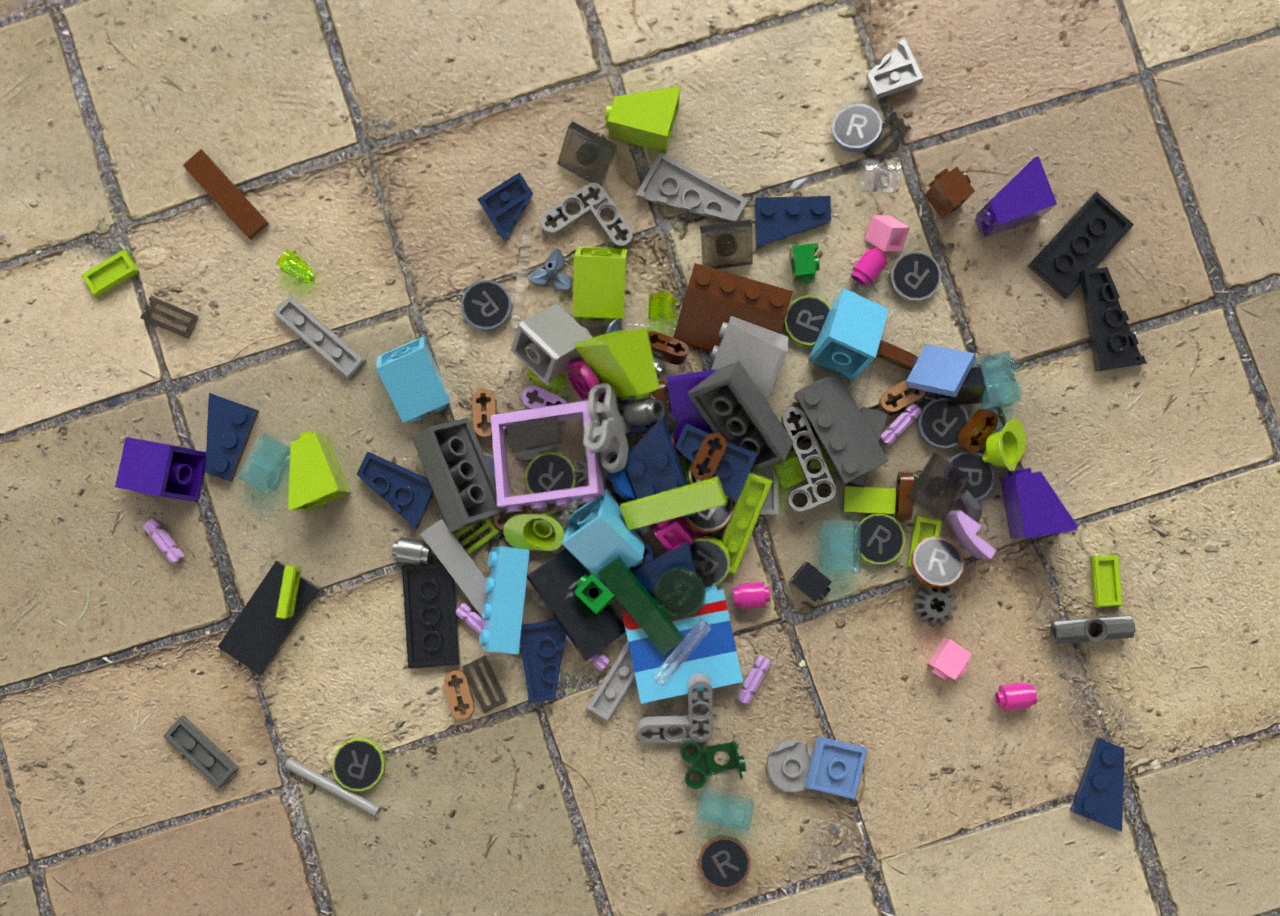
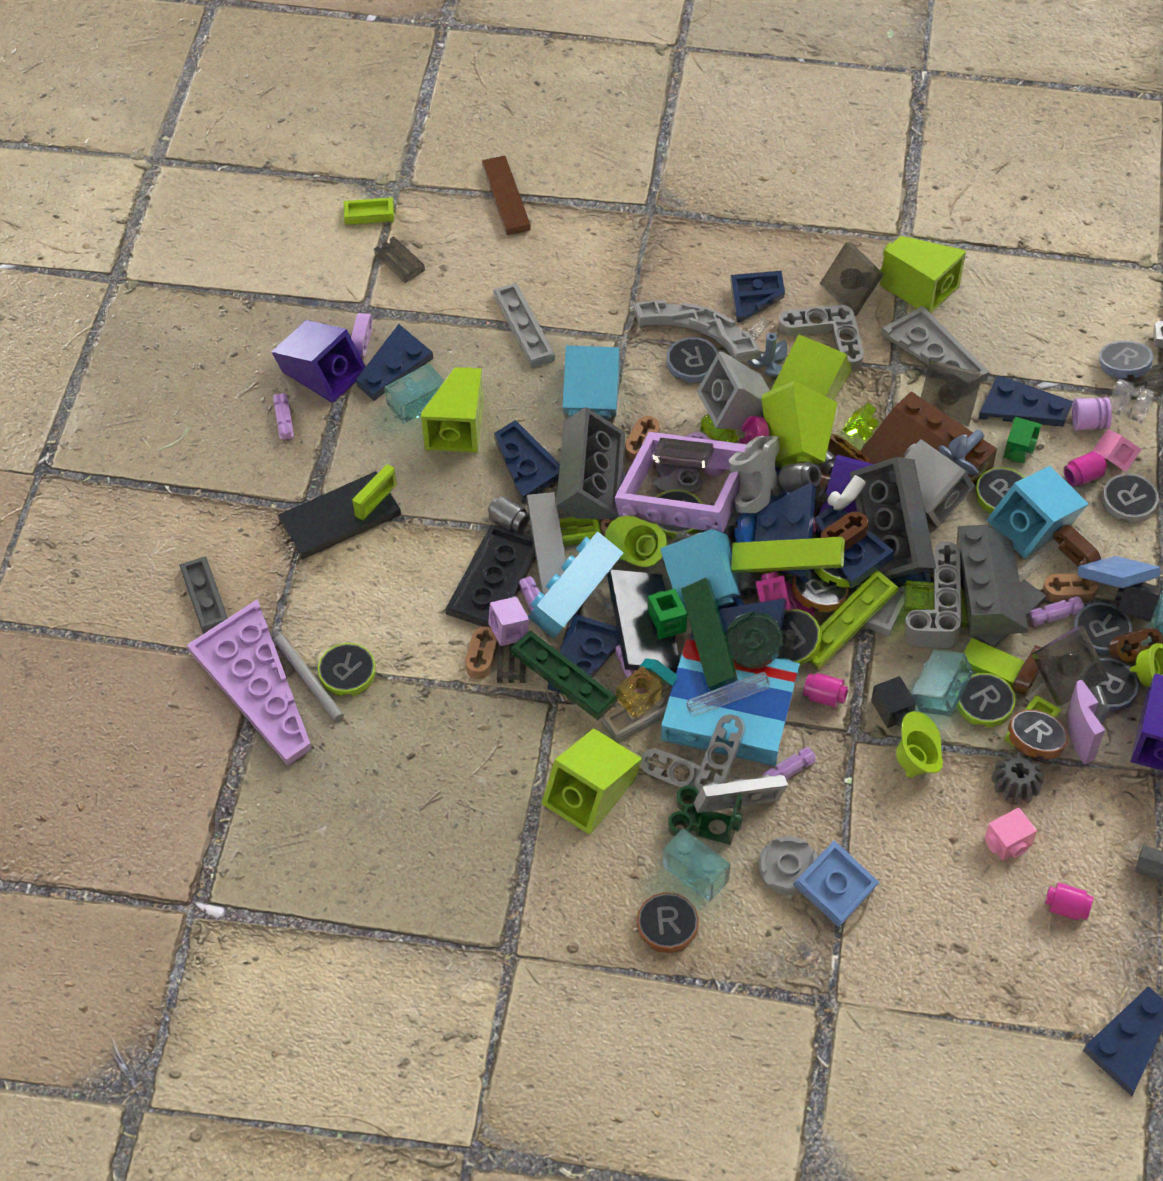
camera: 25 degrees right, 30 degrees down
(182, 422) = (362, 332): none -> lavender beam
(279, 807) = (249, 671): none -> lavender wing
(294, 265) = (534, 262): clear neon green cone -> none
(468, 664) = (508, 620): none -> lavender brick
(475, 258) = (702, 319): none -> light grey tile
(538, 691) = (564, 675): none -> dark green tile
(604, 691) = (635, 702): none -> clear yellow brick
(608, 772) = (590, 780): none -> lime slope
(615, 654) = (665, 674): none -> teal tile
(697, 419) = (850, 493): none -> white arm
(730, 732) = (754, 791): none -> light grey plate
(768, 318) = (960, 448): none -> sand blue plant
(850, 617) = (920, 745): none -> lime piece
(852, 205) = (1091, 413): none -> lavender piece

